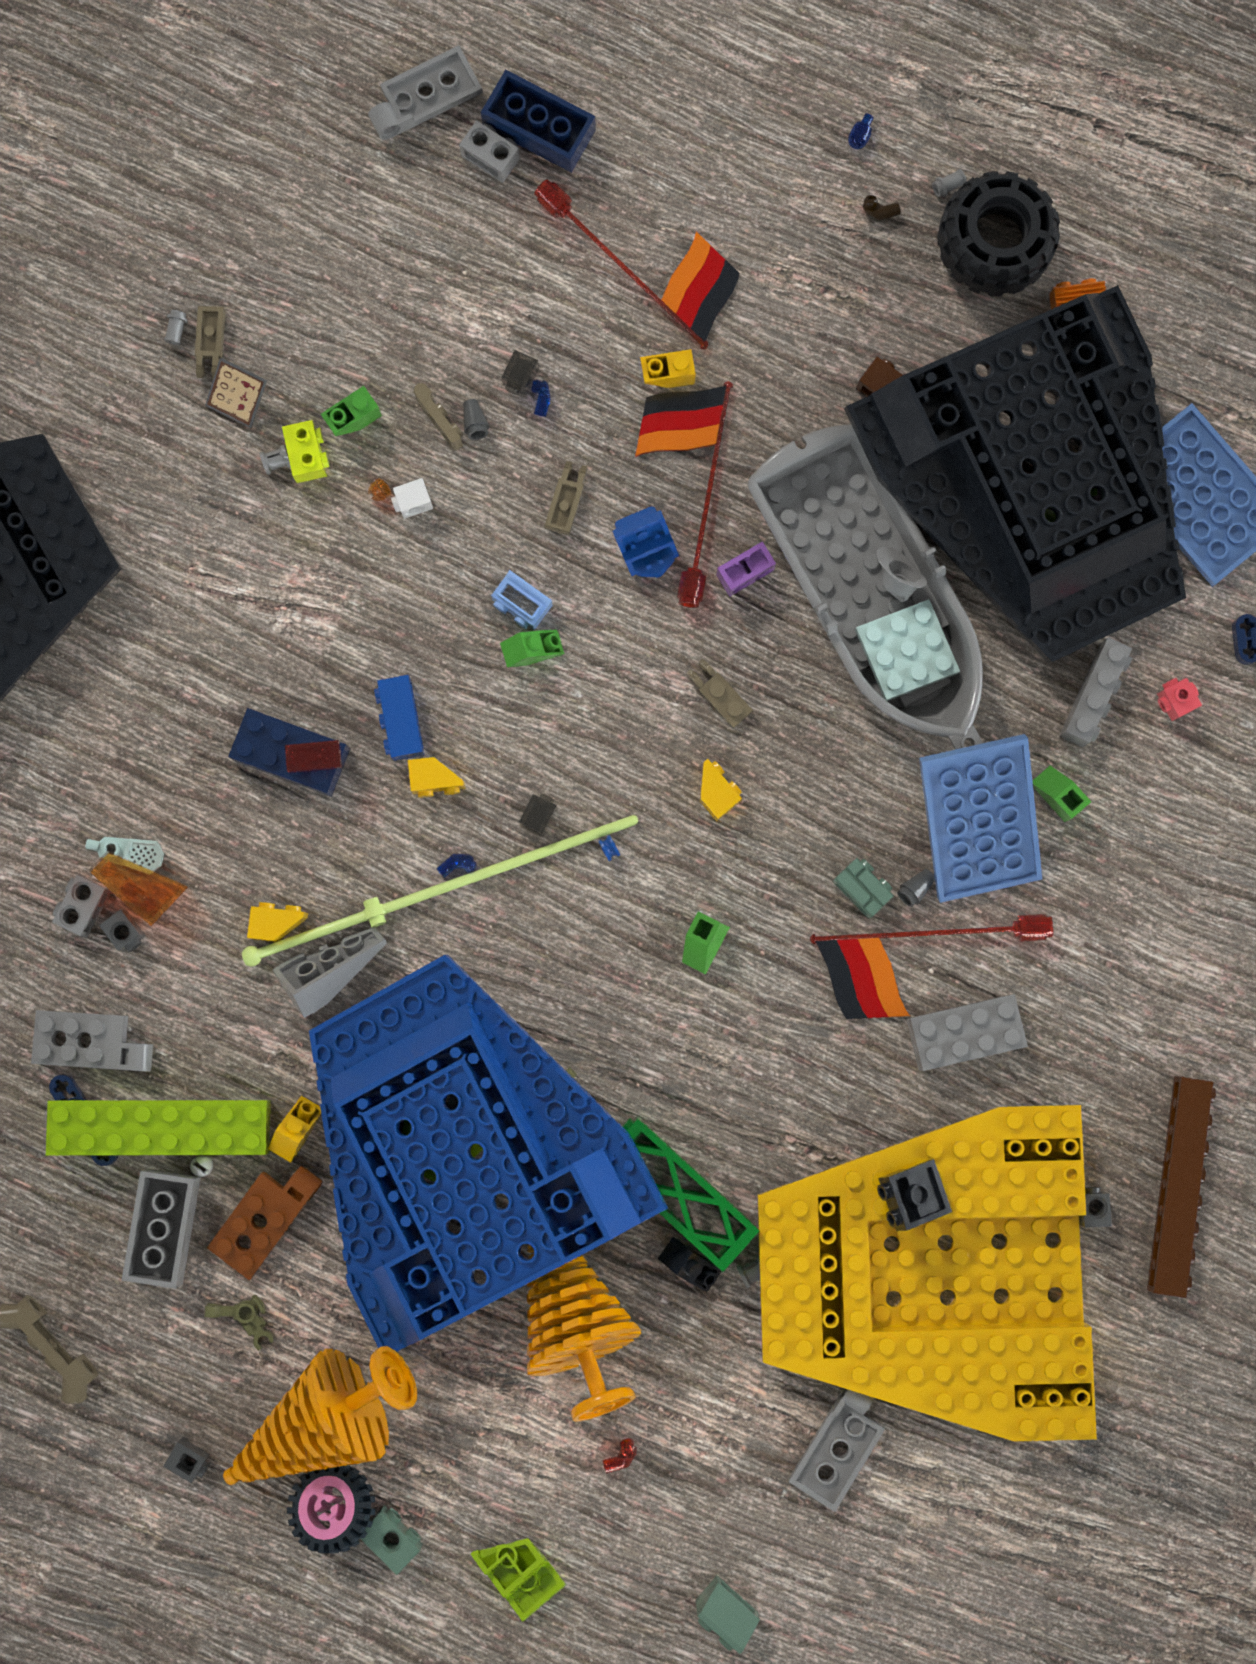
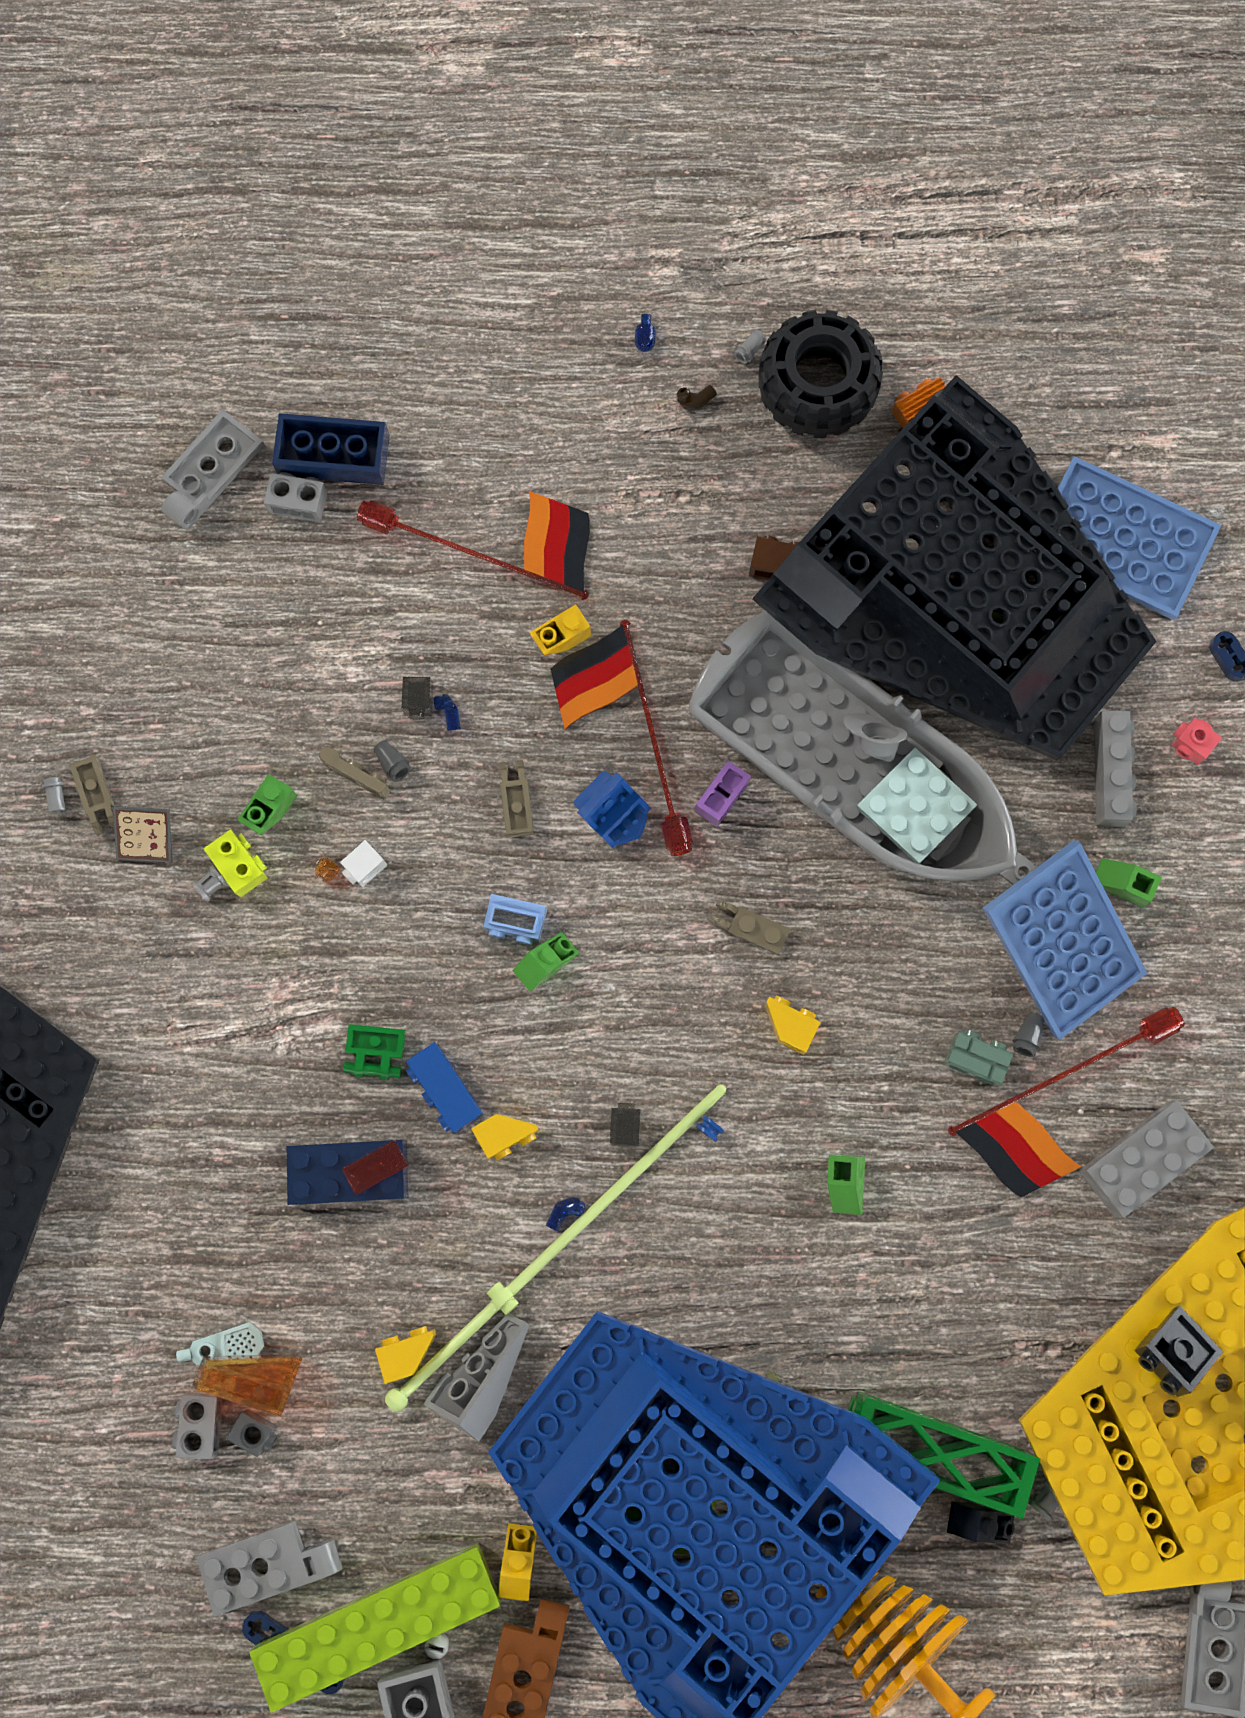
camera: 20 degrees left, 5 degrees down
(358, 654) = (374, 1041): none -> green plate

